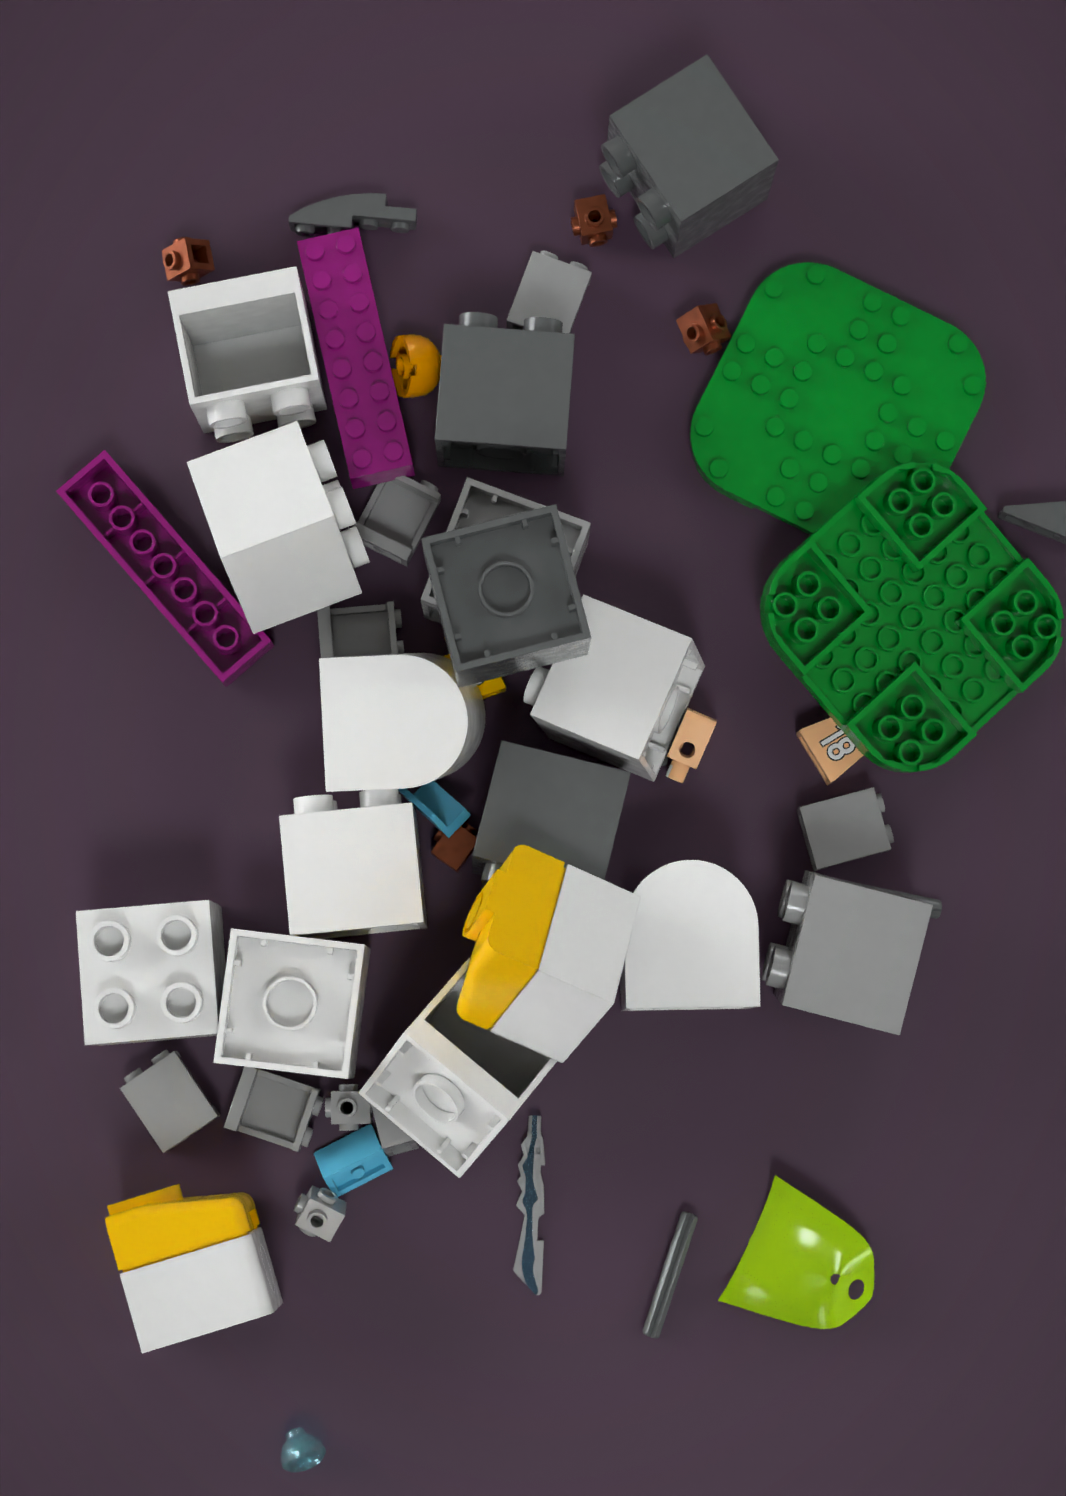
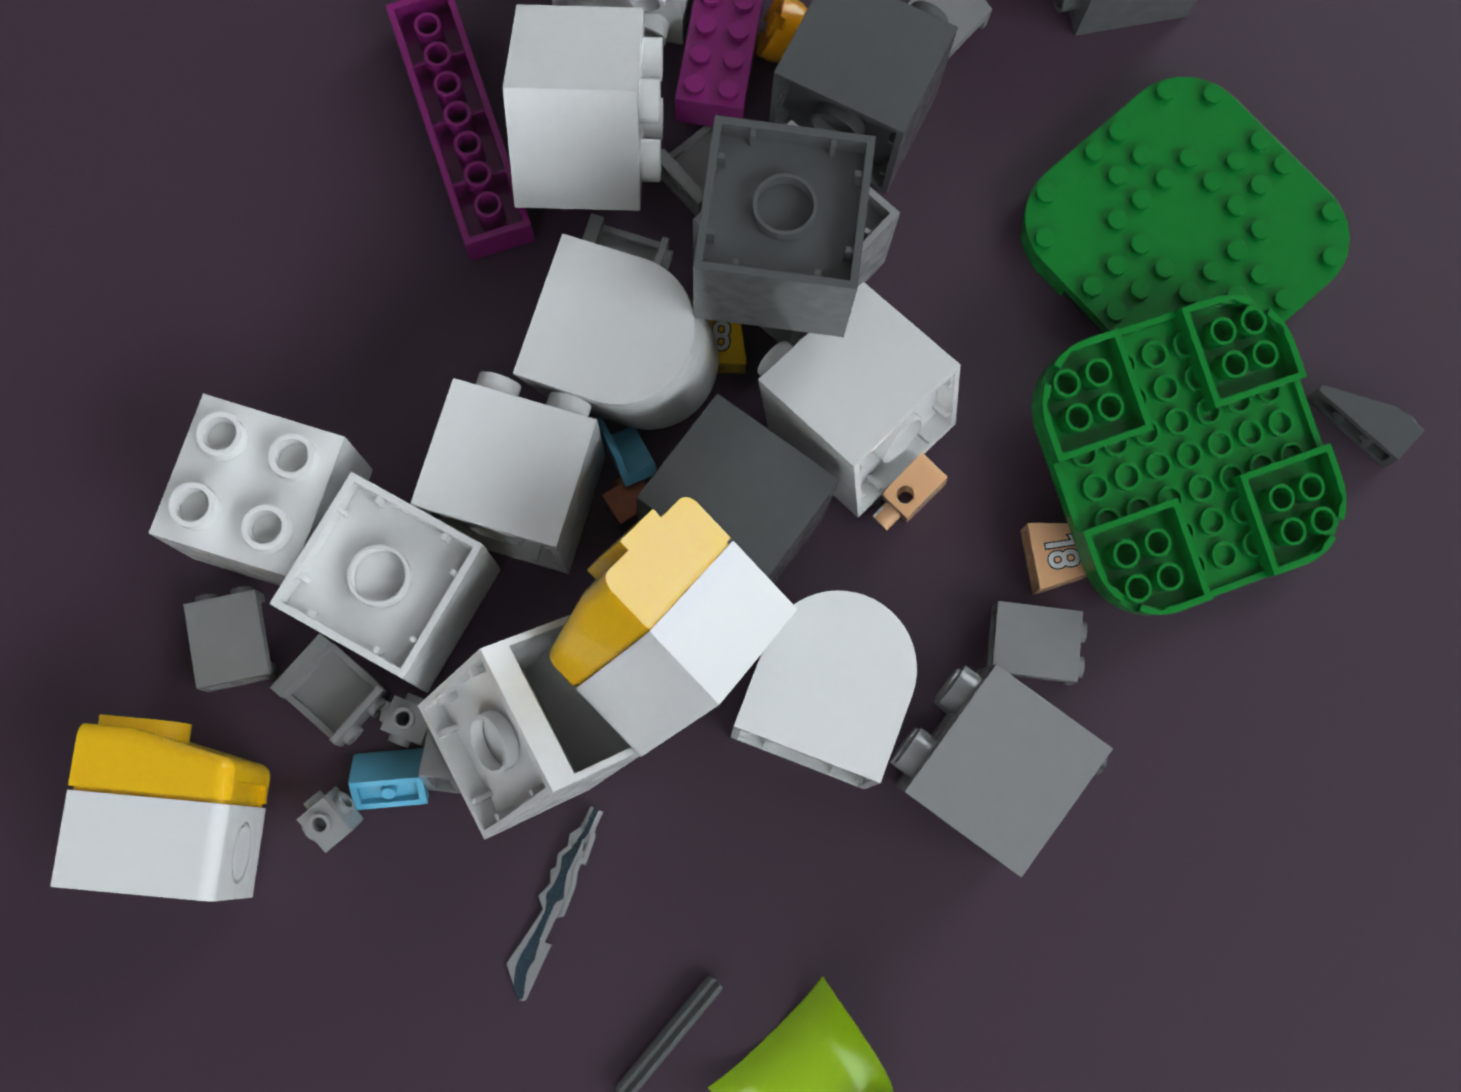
camera: 20 degrees right, 5 degrees down
(301, 1451) = (198, 1065): clear light blue brick -> none
(704, 329) = (1081, 104): copper brick -> none

